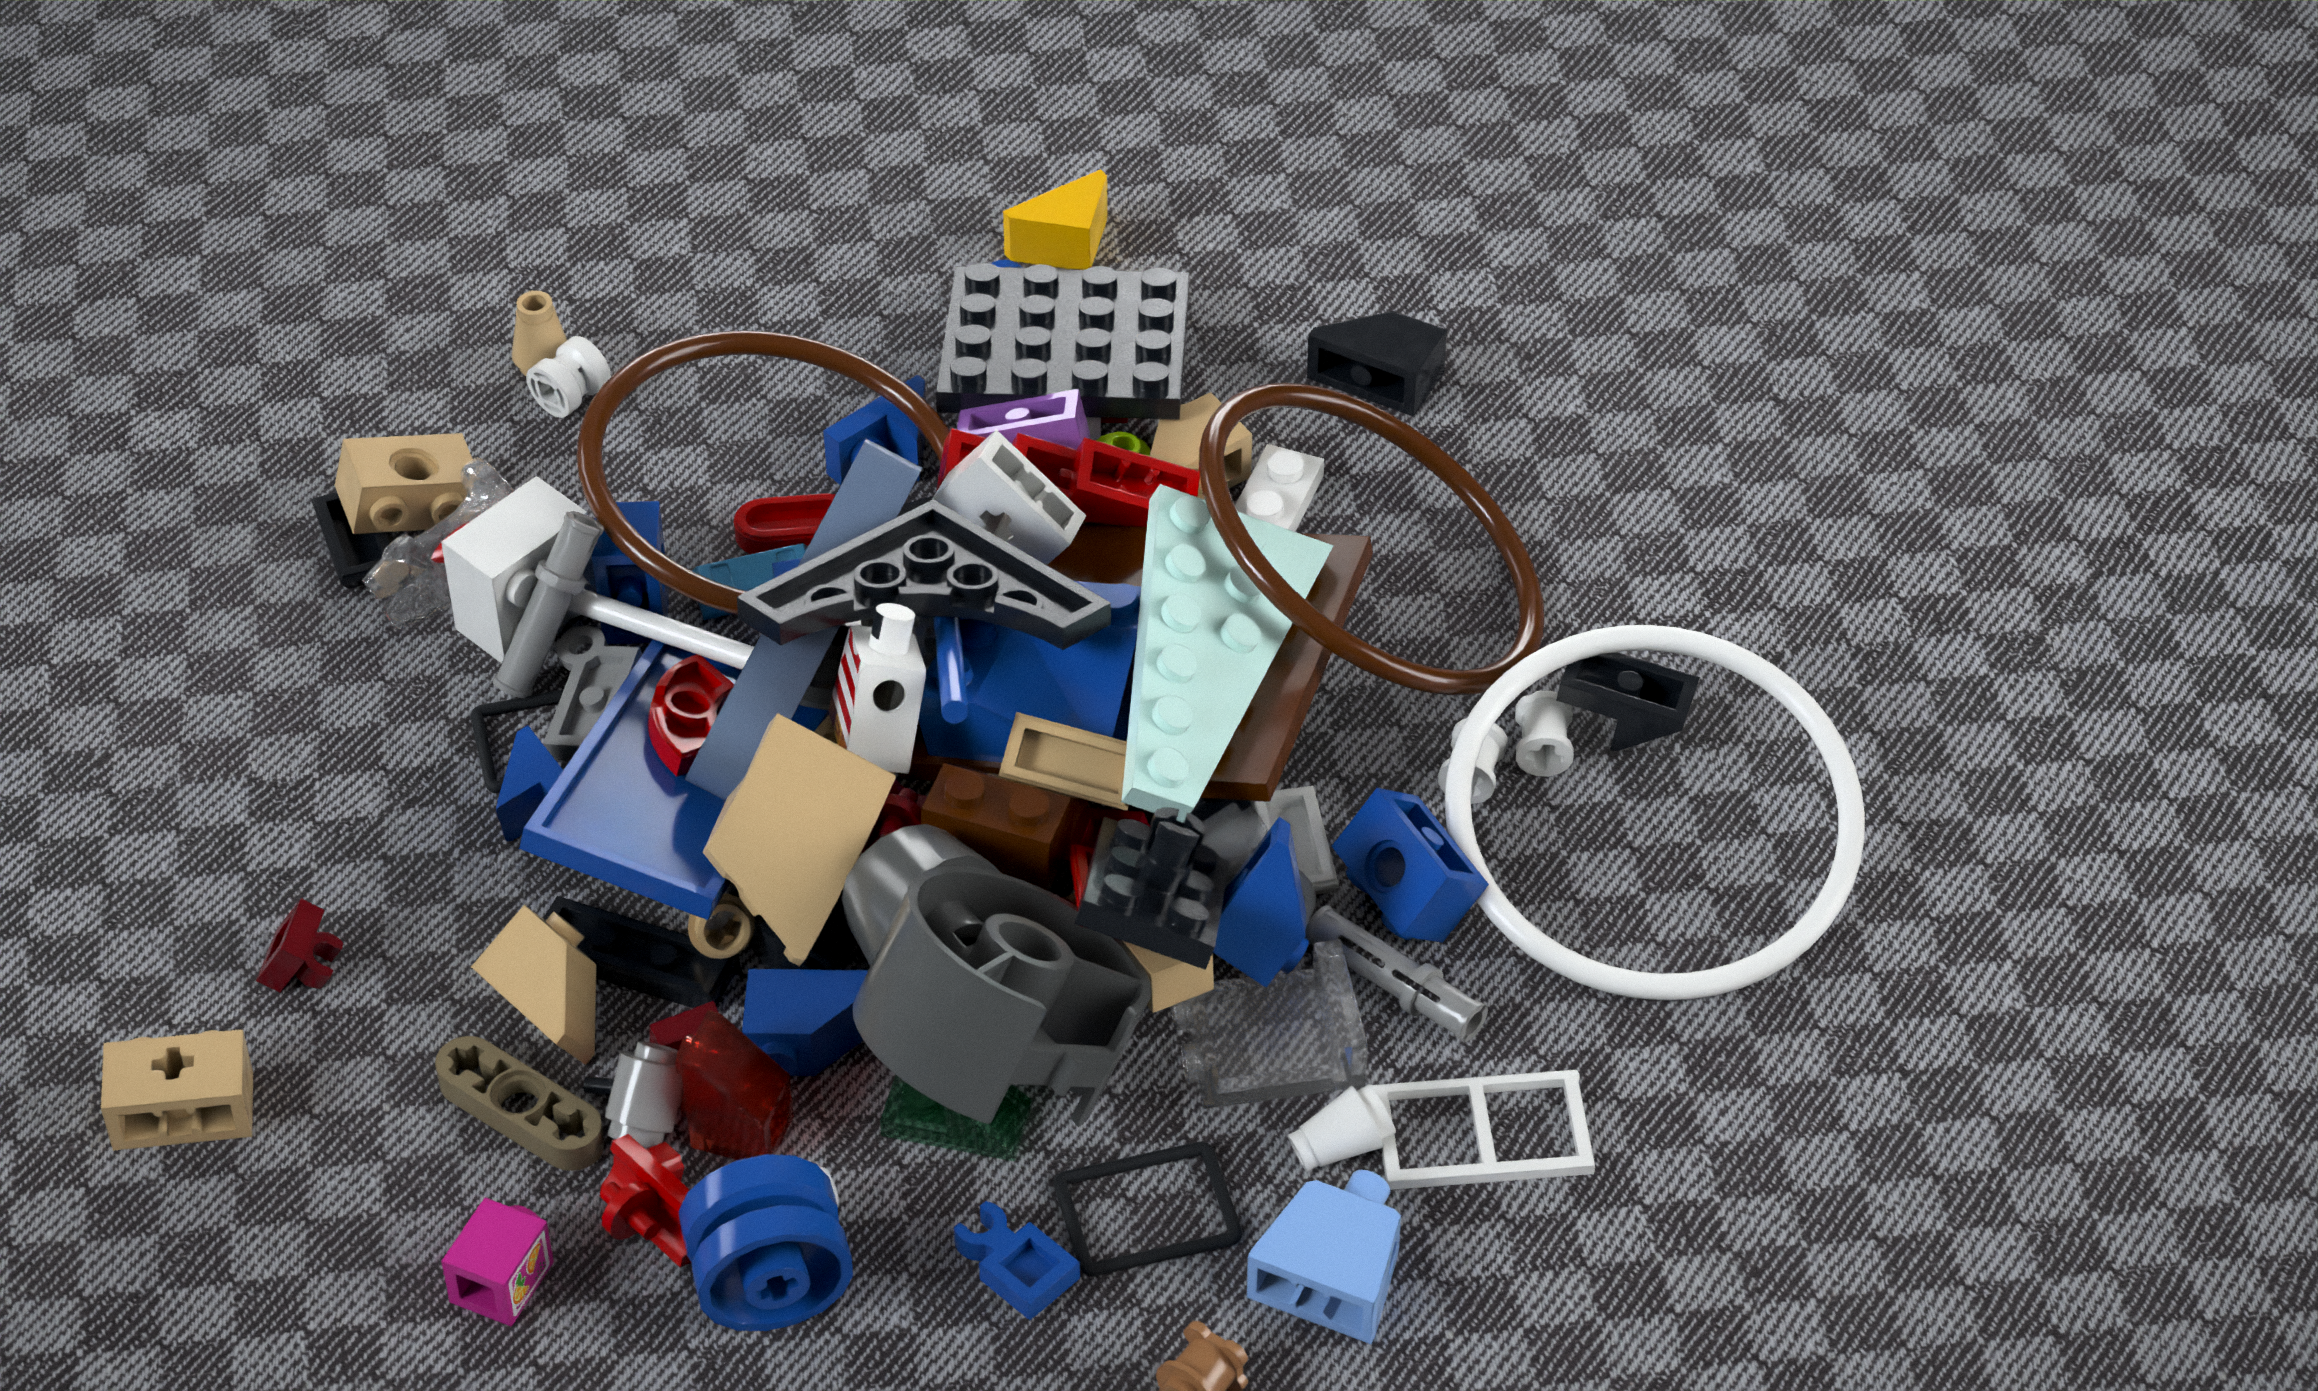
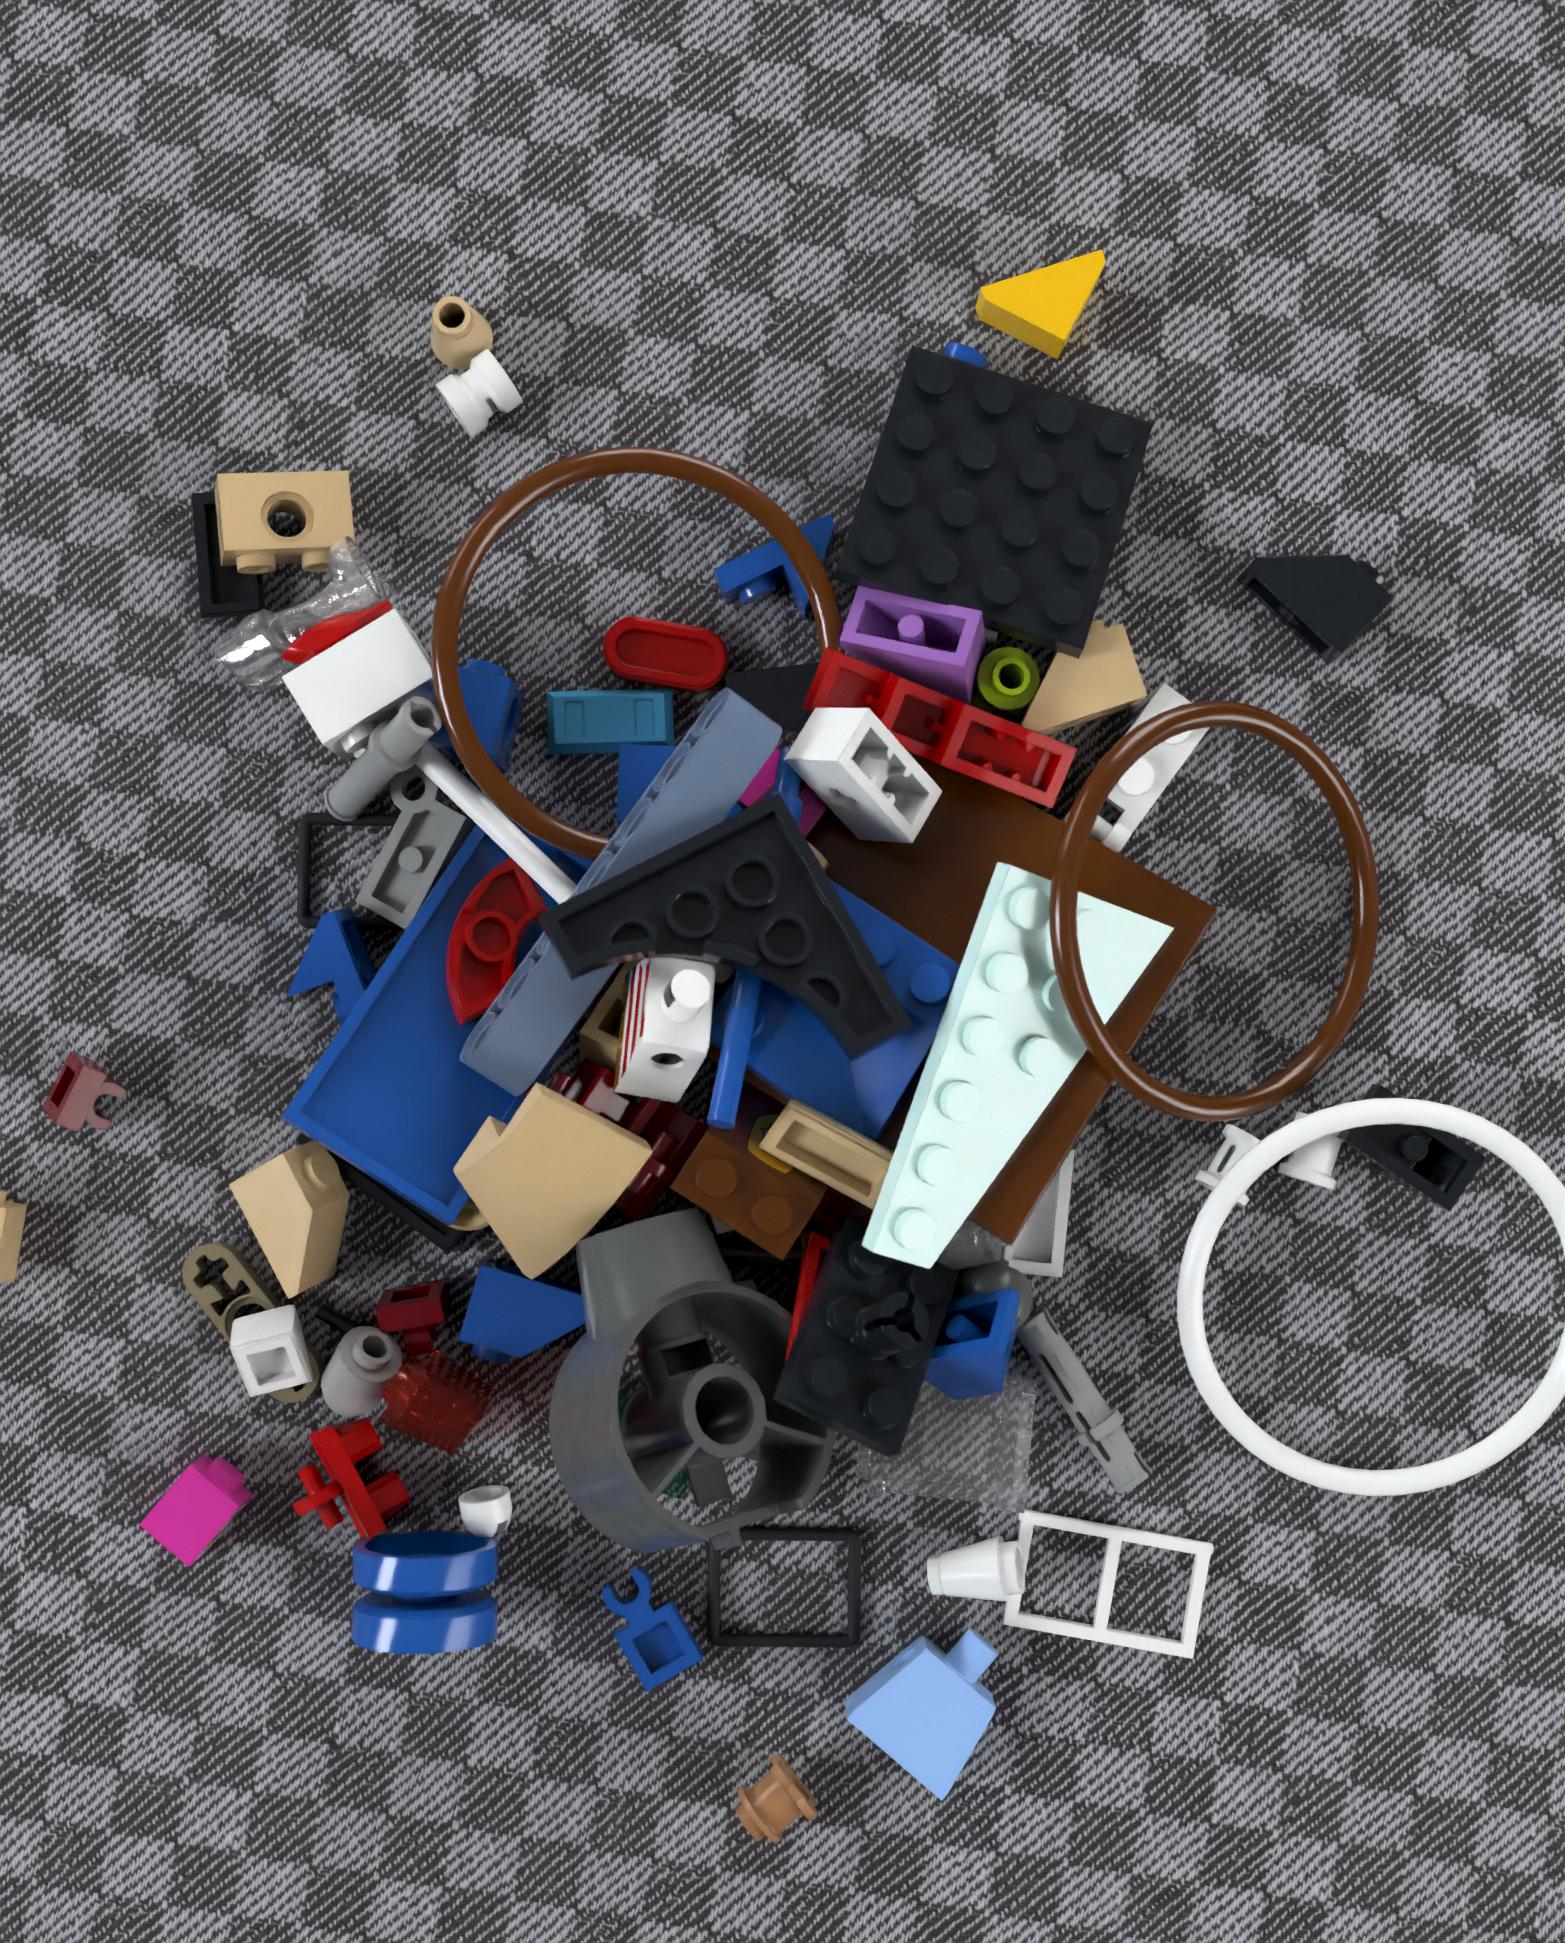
camera: 15 degrees right, 40 degrees up
(548, 1101) = (270, 1350): none -> white slope
(1409, 866) = (1131, 1300): blue brick -> none

